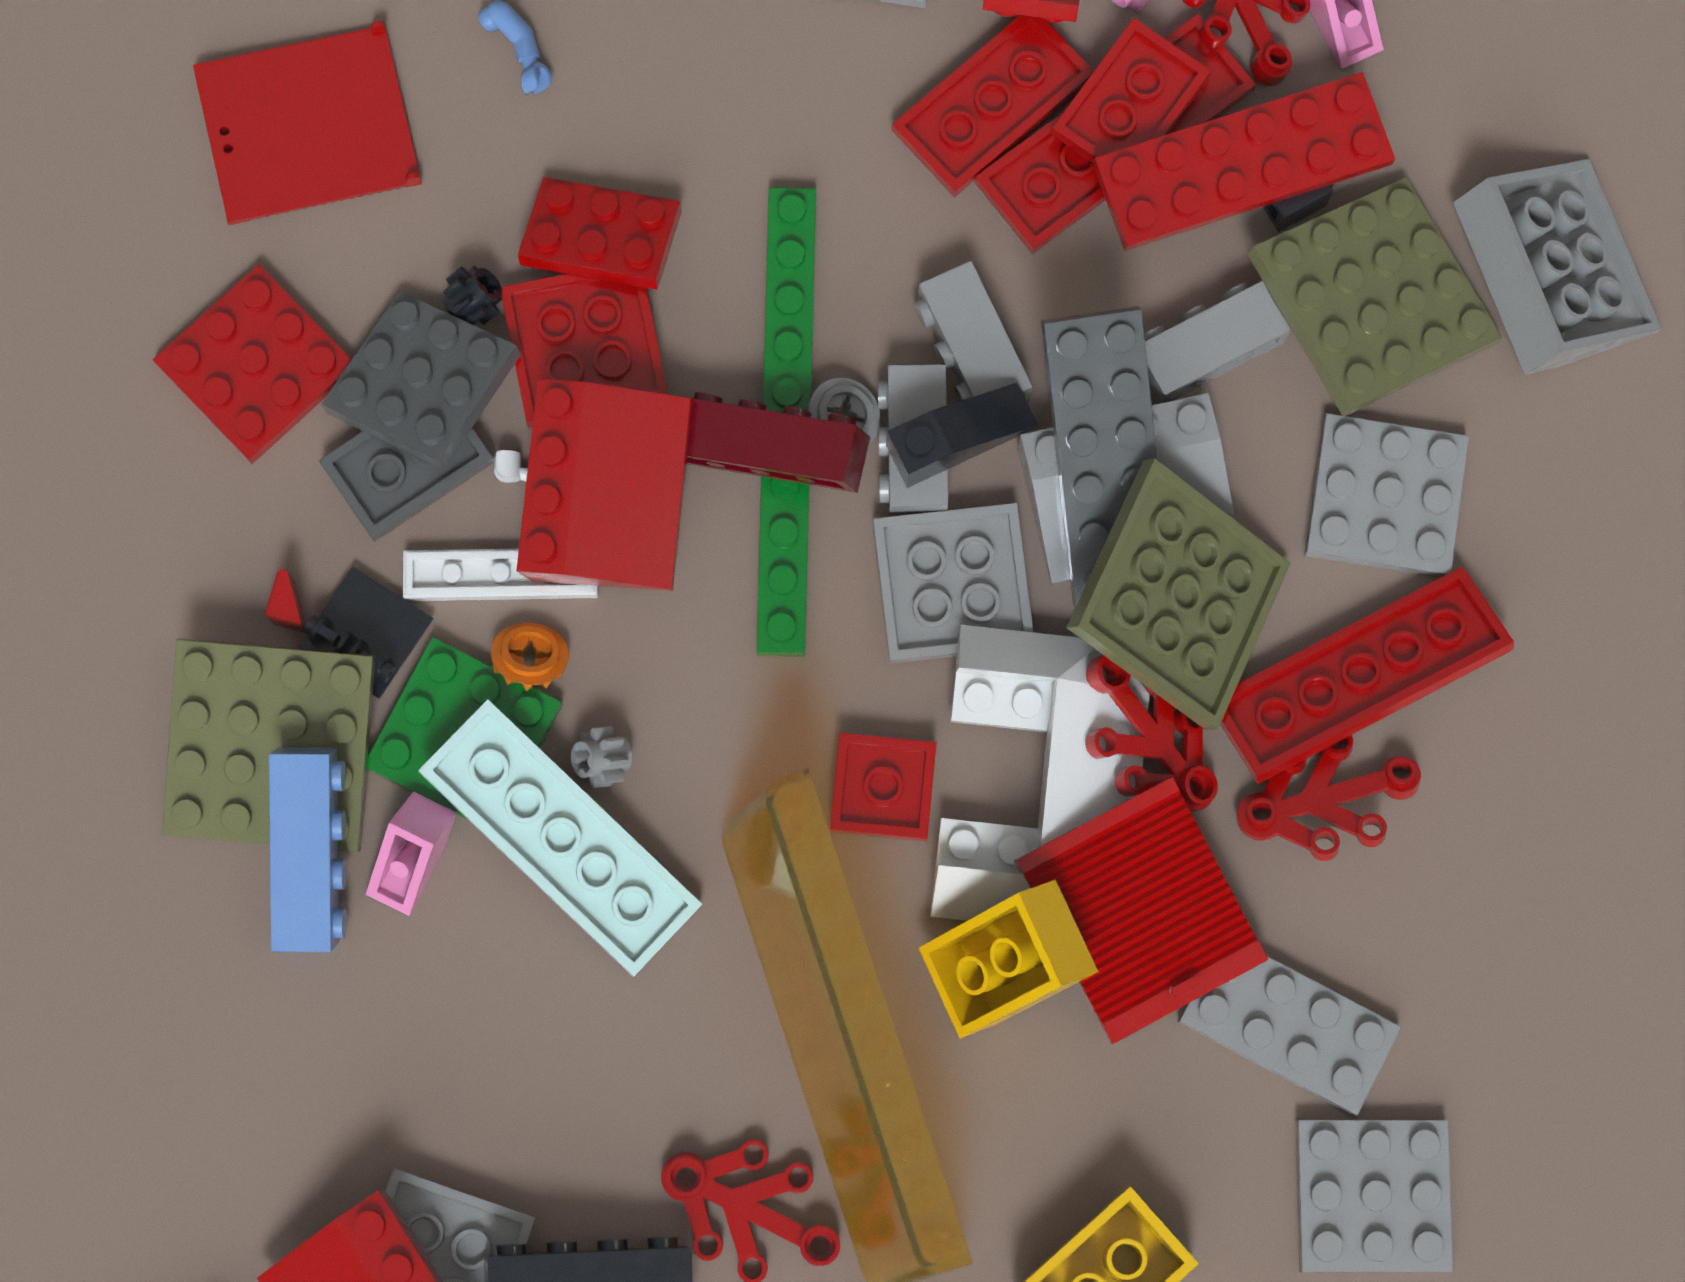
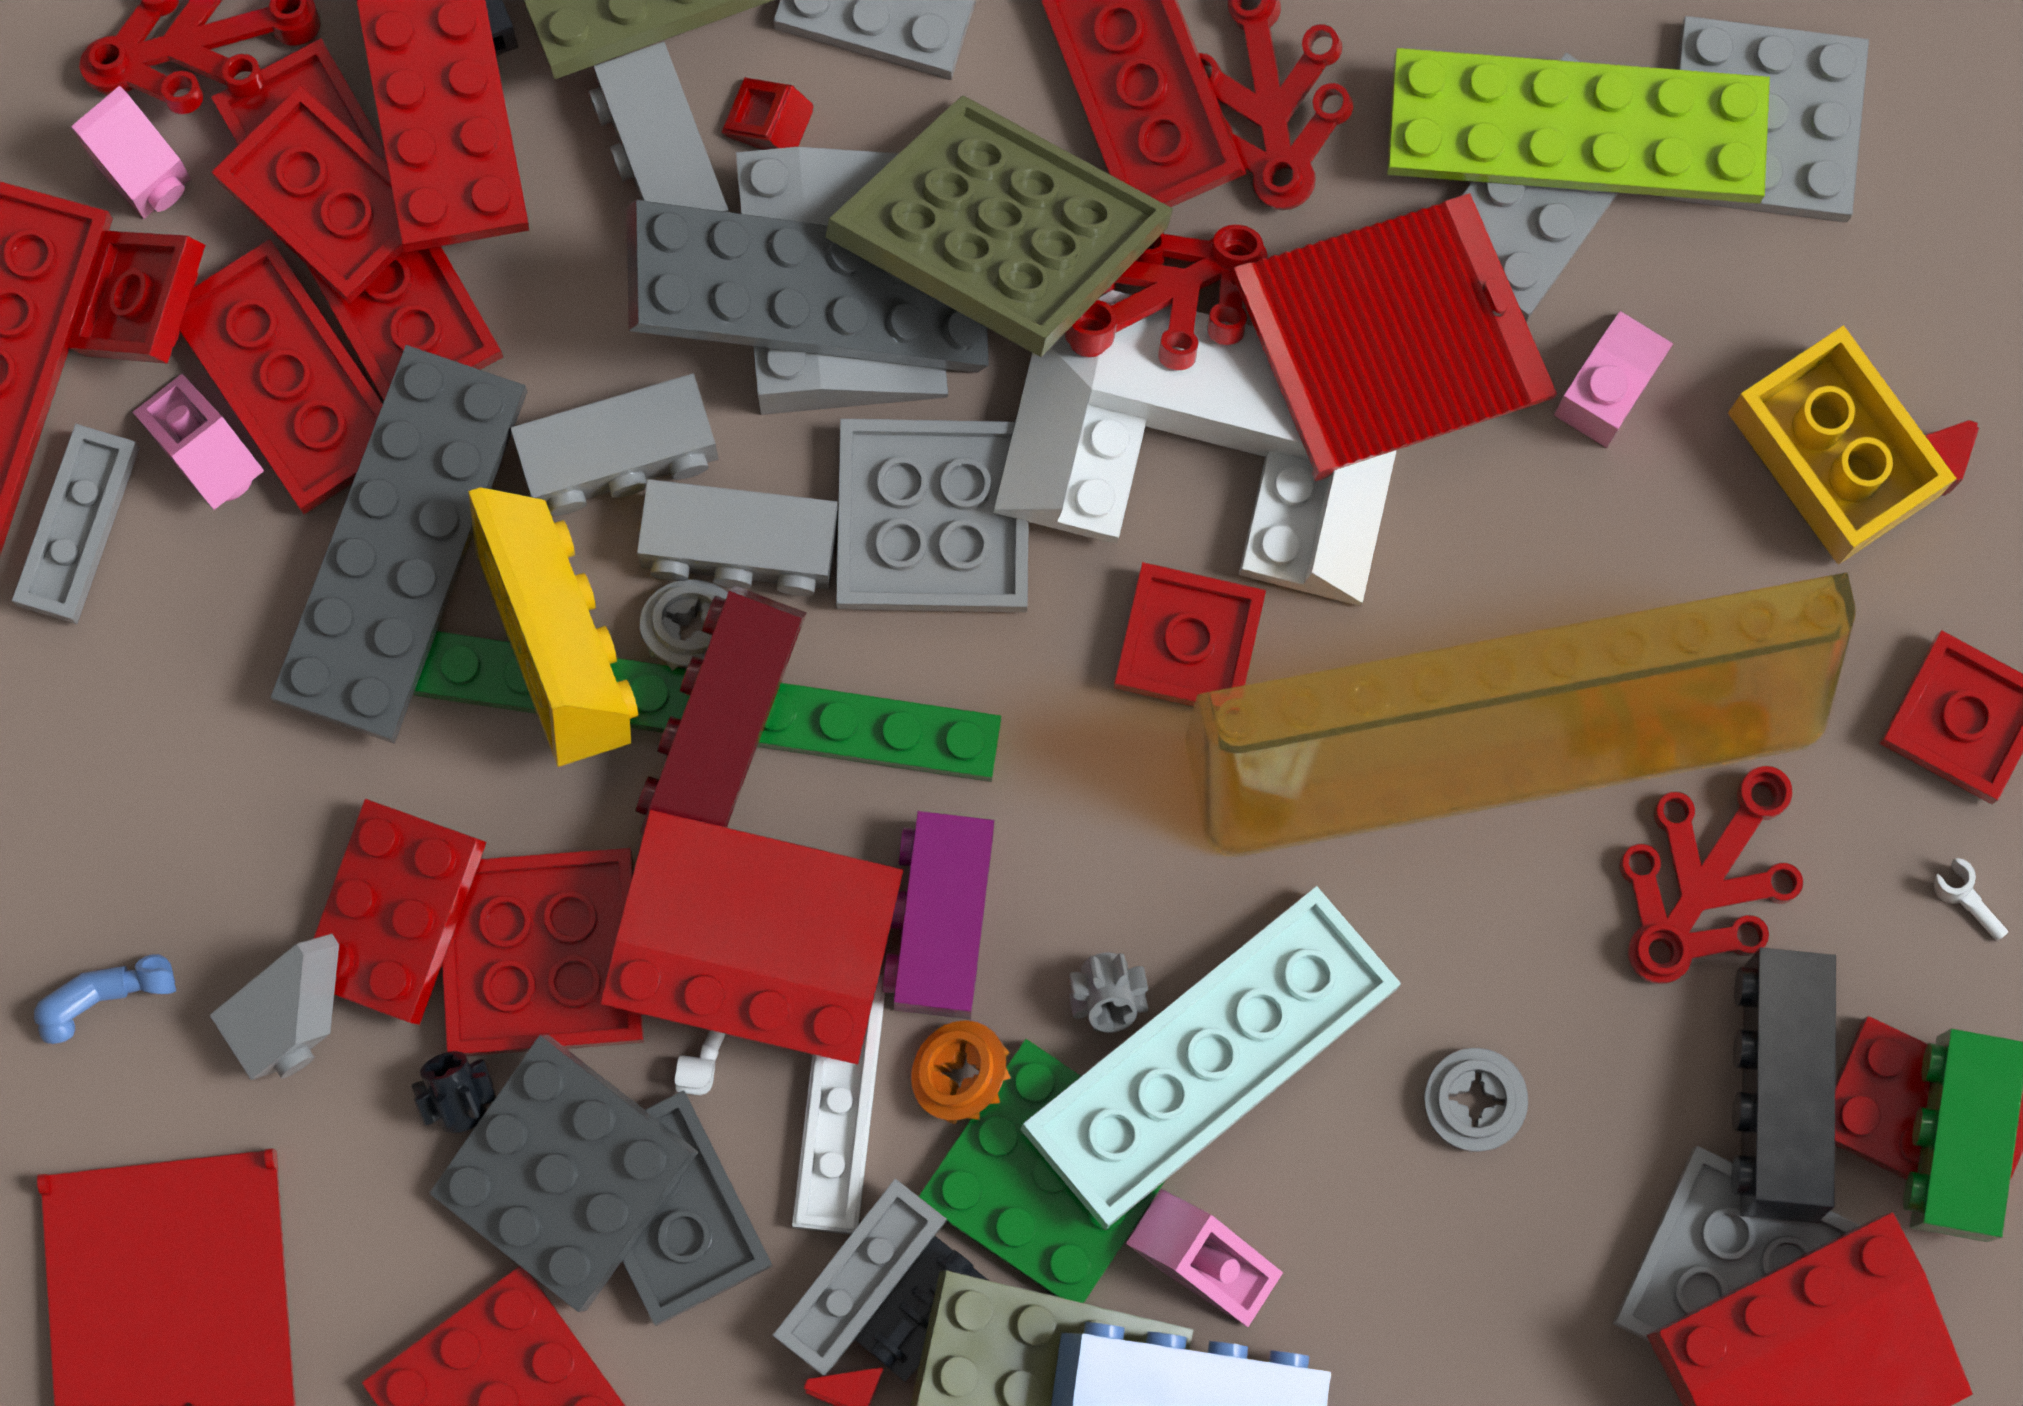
camera: 85 degrees left, 0 degrees up
(367, 601) = (859, 1277): none -> light grey plate
(515, 166) = (283, 1010): none -> light grey slope
(537, 1029) = (1498, 1079): none -> light grey gear
(645, 627) = (940, 914): none -> magenta brick
(822, 307) = (551, 625): none -> yellow slope
(873, 196) = (398, 544): none -> dark grey plate
(932, 46) = (199, 442): none -> bright pink slope
(958, 432) = (748, 470): black slope -> none
(1008, 959) = (1444, 501): yellow brick -> none
(1140, 1093) = (1612, 379): none -> bright pink slope
(1250, 422) = (768, 115): none -> red slope
(1337, 1040) = (1578, 125): none -> lime plate

